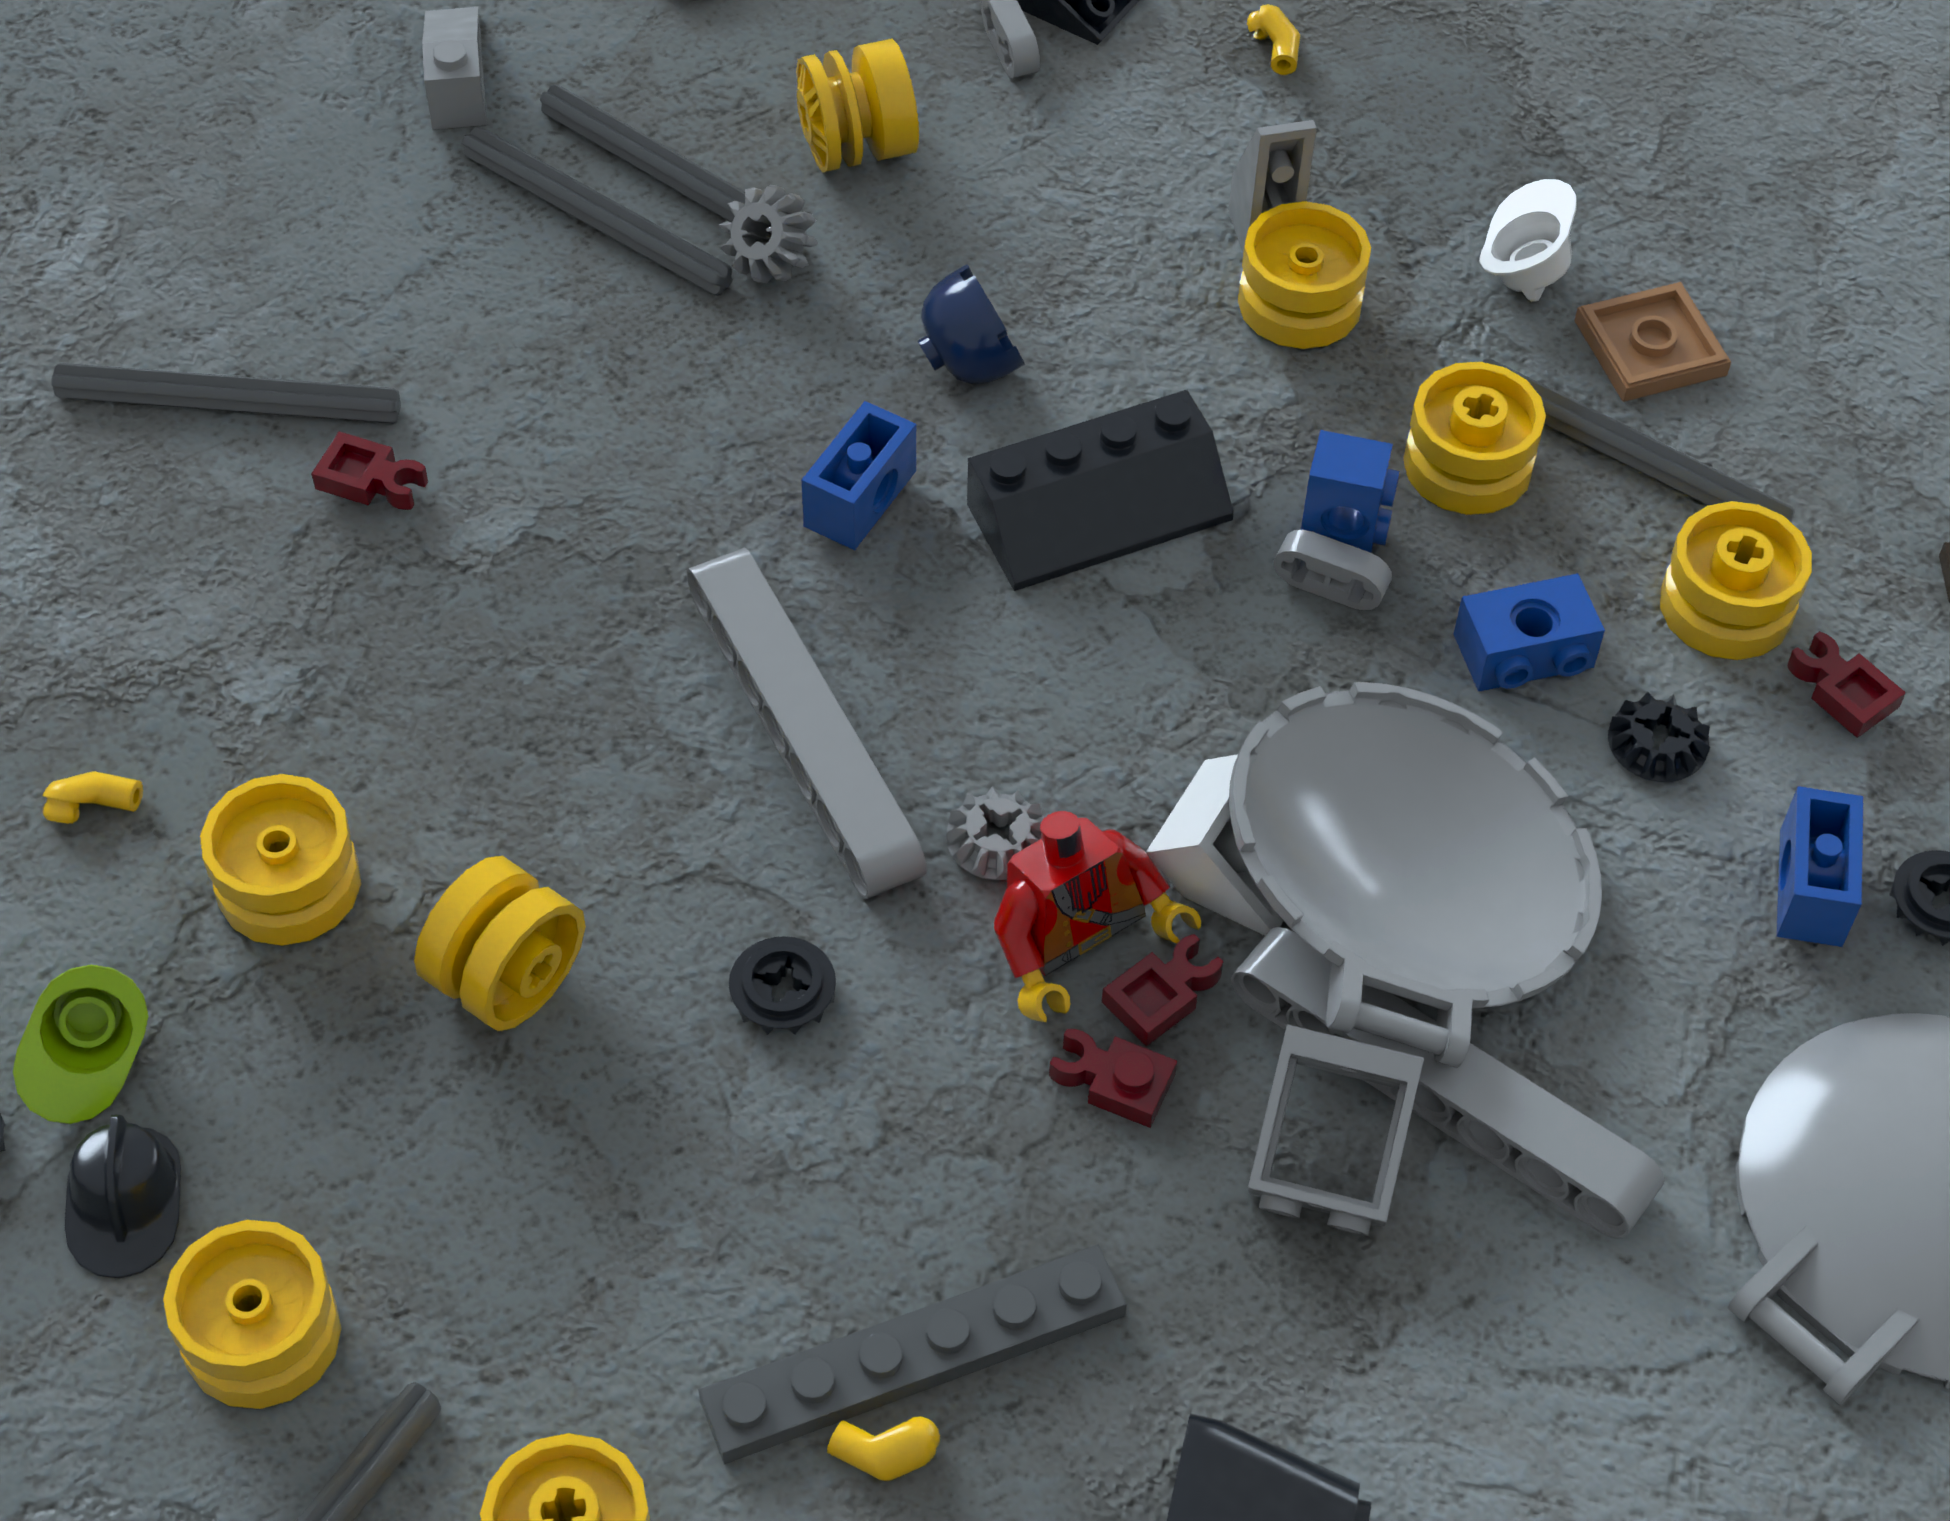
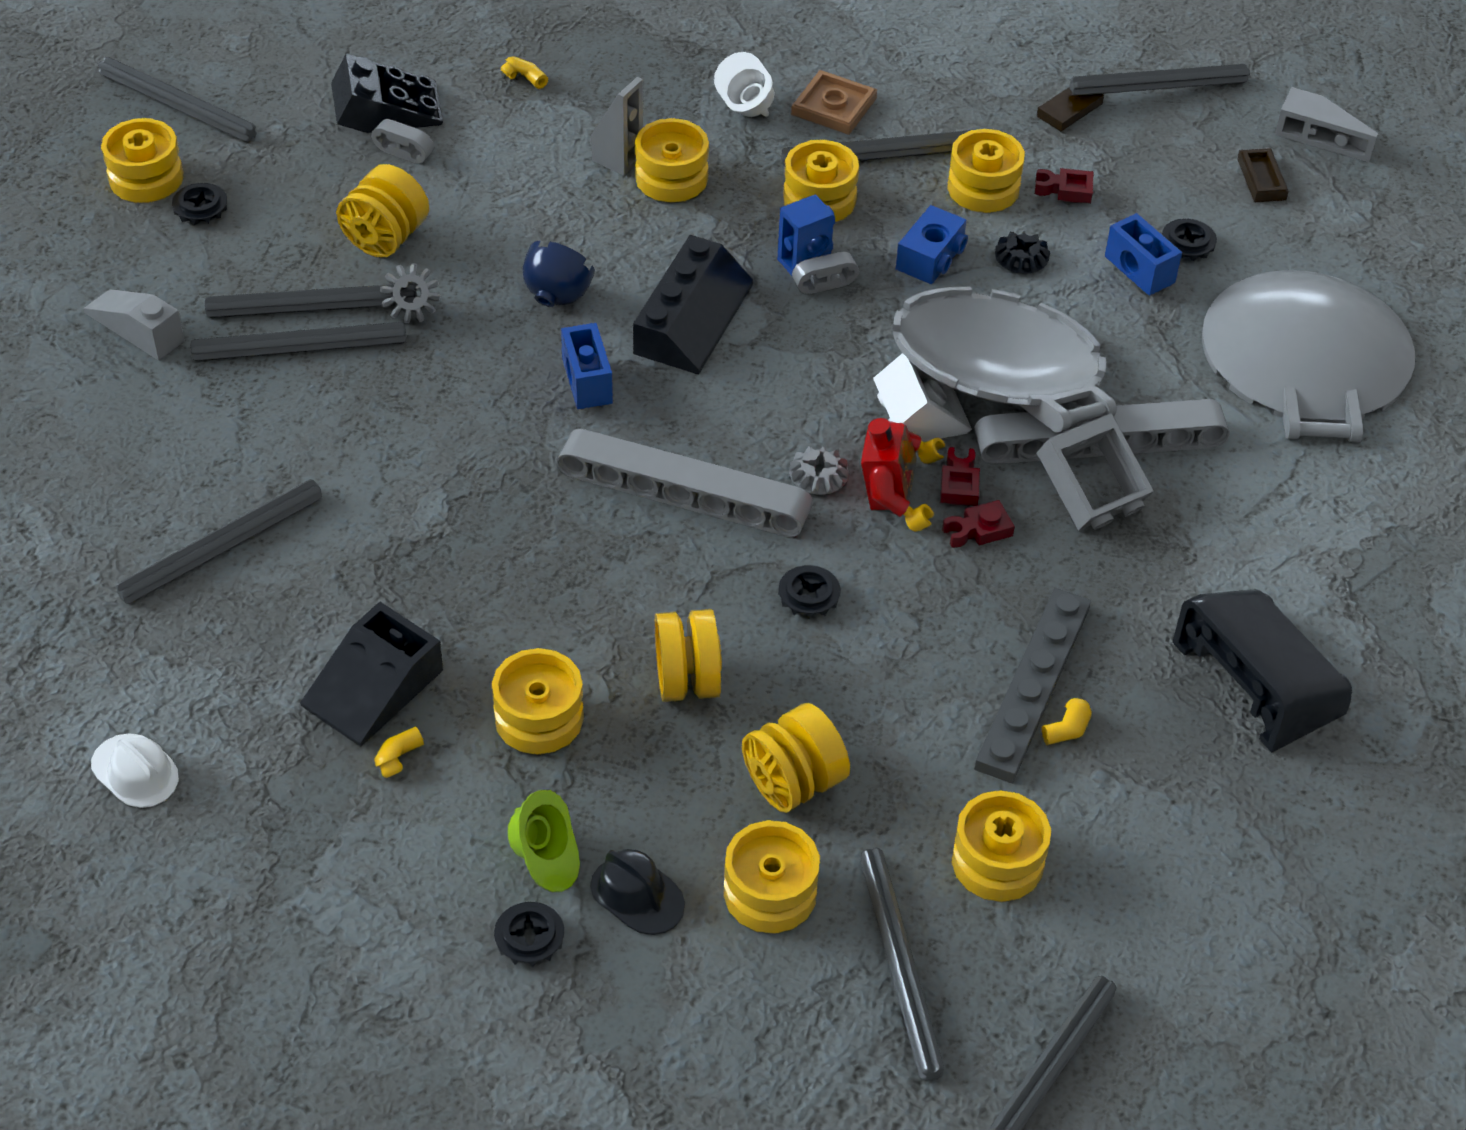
camera: 45 degrees left, 5 degrees down
(165, 680) = (374, 674): none -> black slope
(364, 468) = (342, 526): dark red plate -> none
(444, 1184) = (796, 757): none -> yellow wheel

